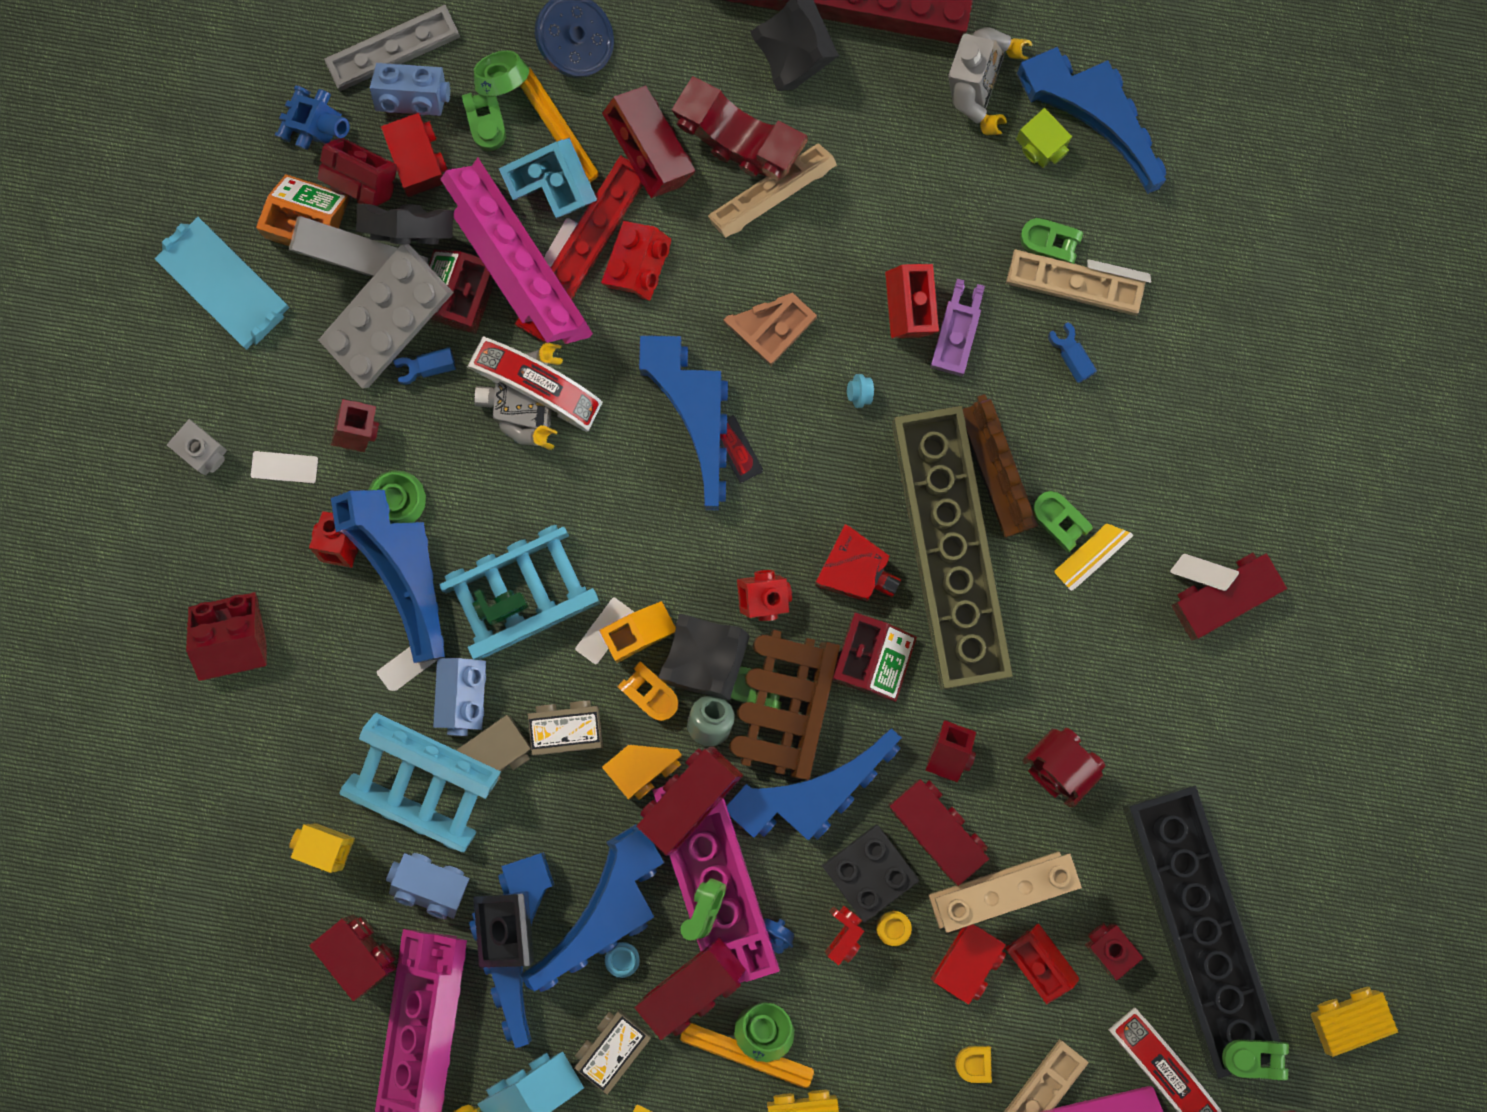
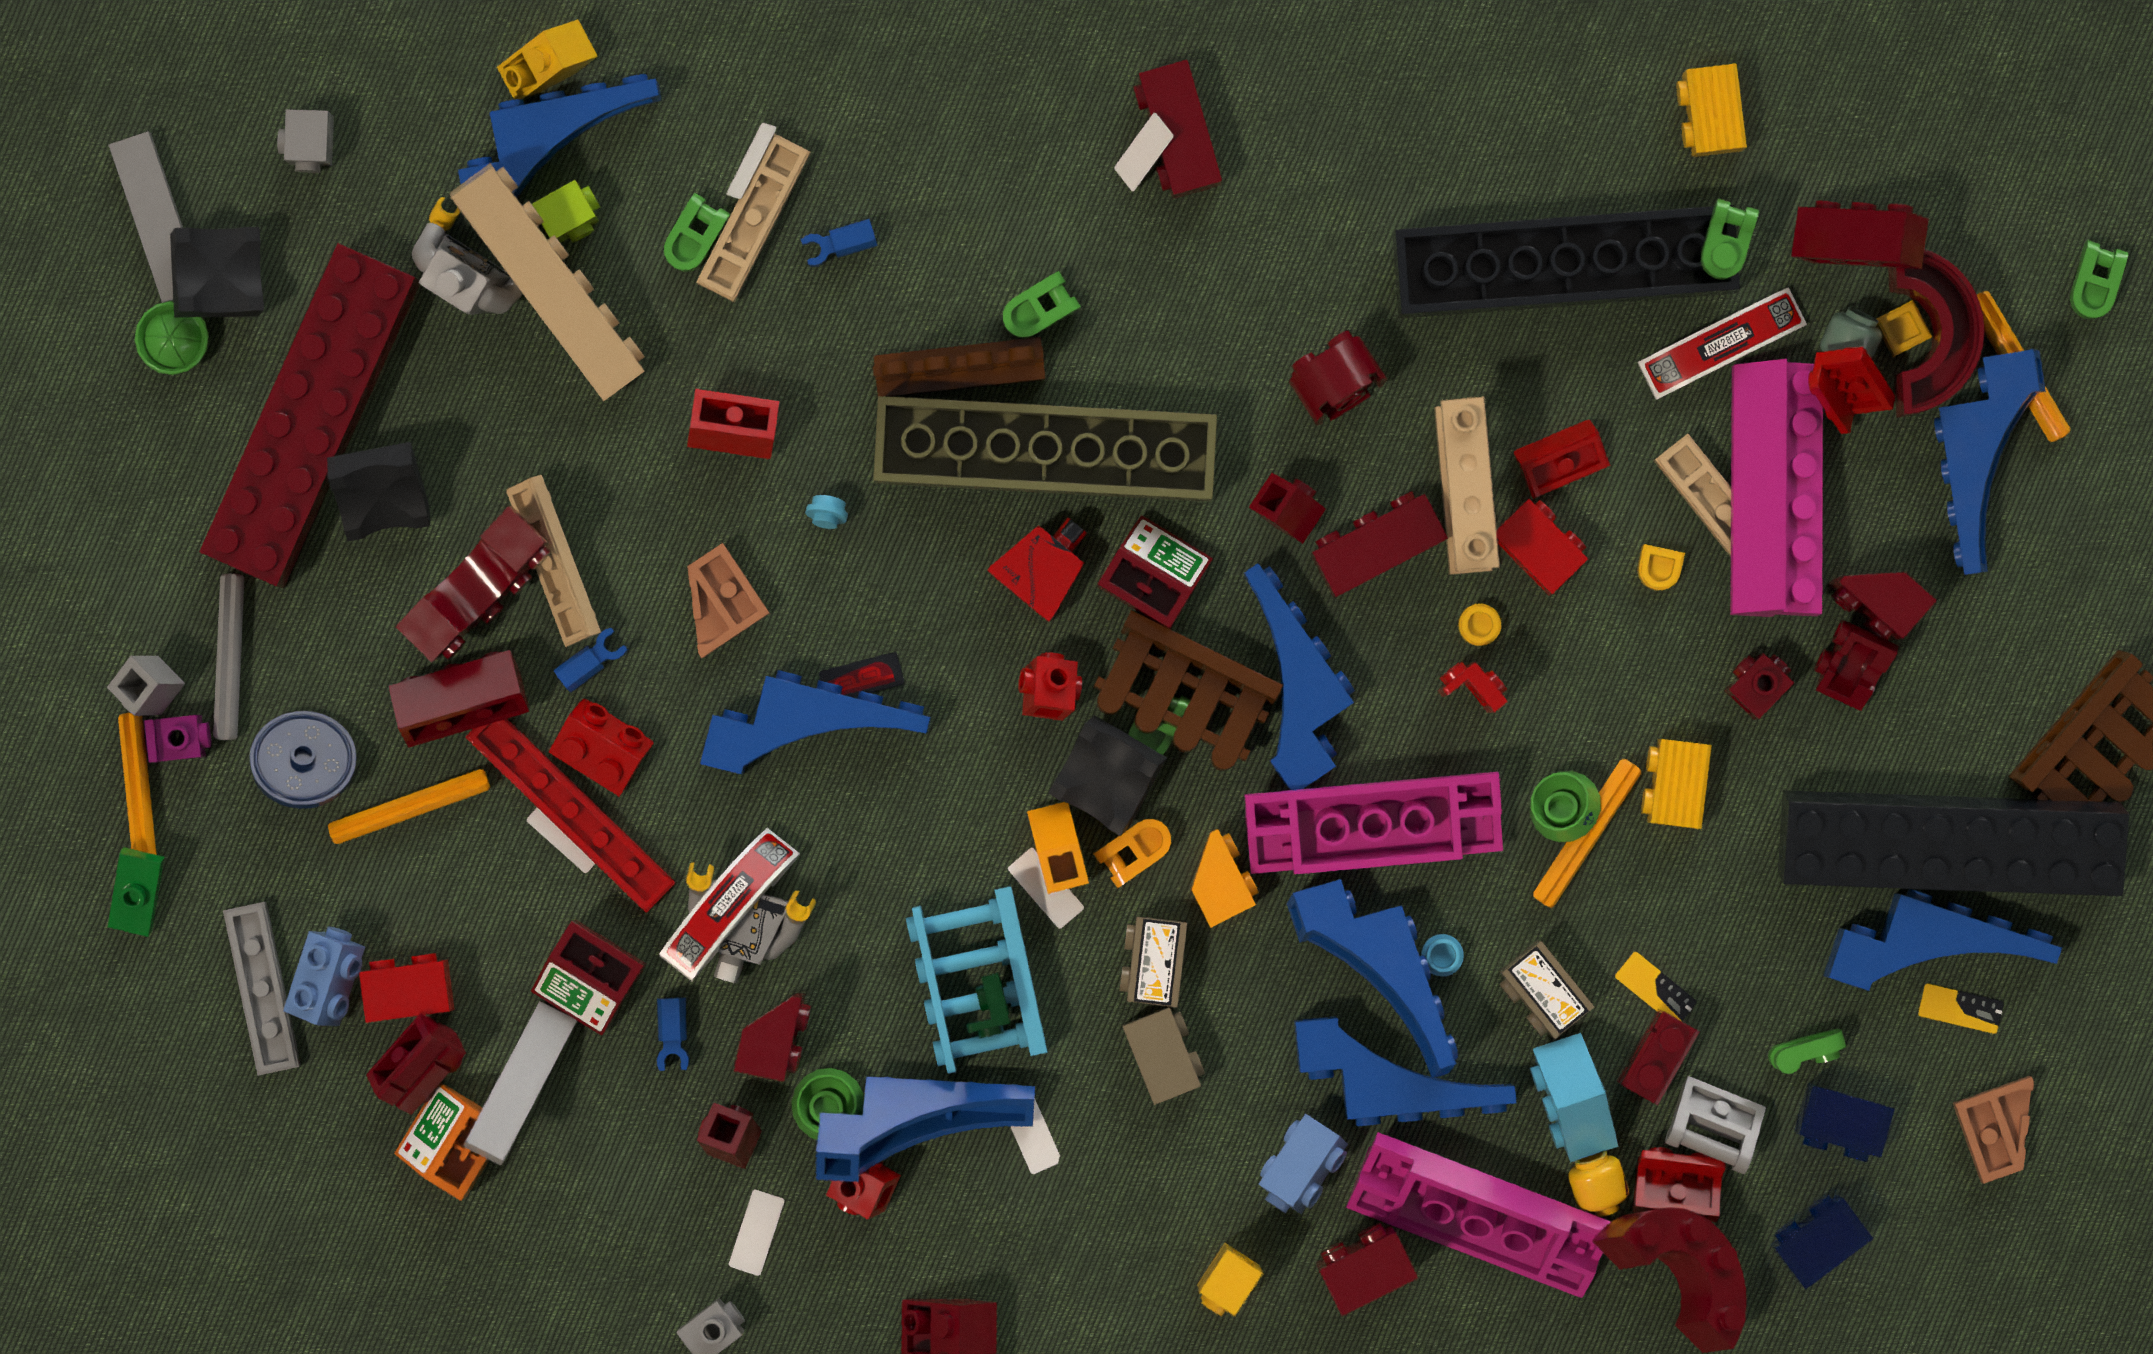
camera: 75 degrees left, 5 degrees up
(221, 282) = (510, 1260): medium azure brick -> none
(311, 119) = (334, 1106): blue piece -> none
(385, 315) = (604, 1067): light grey plate -> none
(404, 224) = (497, 1018): black brick -> none
(431, 756) = (1153, 1125): medium azure fence -> none
(432, 441) = (769, 1042): none -> dark red slope
(459, 695) = (1085, 1078): medium blue brick -> none
(486, 130) = (394, 893): bright green plate -> none
(499, 73) = (331, 862): bright green hat -> none
(504, 930) = (1376, 1085): black slope -> none
(512, 255) = (567, 896): dark pink slope -> none
(557, 172) = (472, 820): medium azure brick -> none
(688, 799) = (1273, 832): dark red brick -> none
(691, 990) = (1496, 880): dark red brick -> none
(700, 235) = (587, 662): none -> blue bar
(708, 899) = (1397, 835): bright green plate -> none
(710, 721) = (1185, 785): sand green head -> none
(779, 935) = (1457, 762): blue hat -> none
(870, 873) = (1408, 637): black brick -> none
(957, 331) = (780, 376): medium lavender hinge -> none
(989, 130) = (546, 280): none -> tan brick
(1092, 555) = (1090, 279): yellow sticker -> none
(1113, 950) = (1564, 372): dark red brick -> none
(1158, 98) = (547, 60): none -> yellow slope

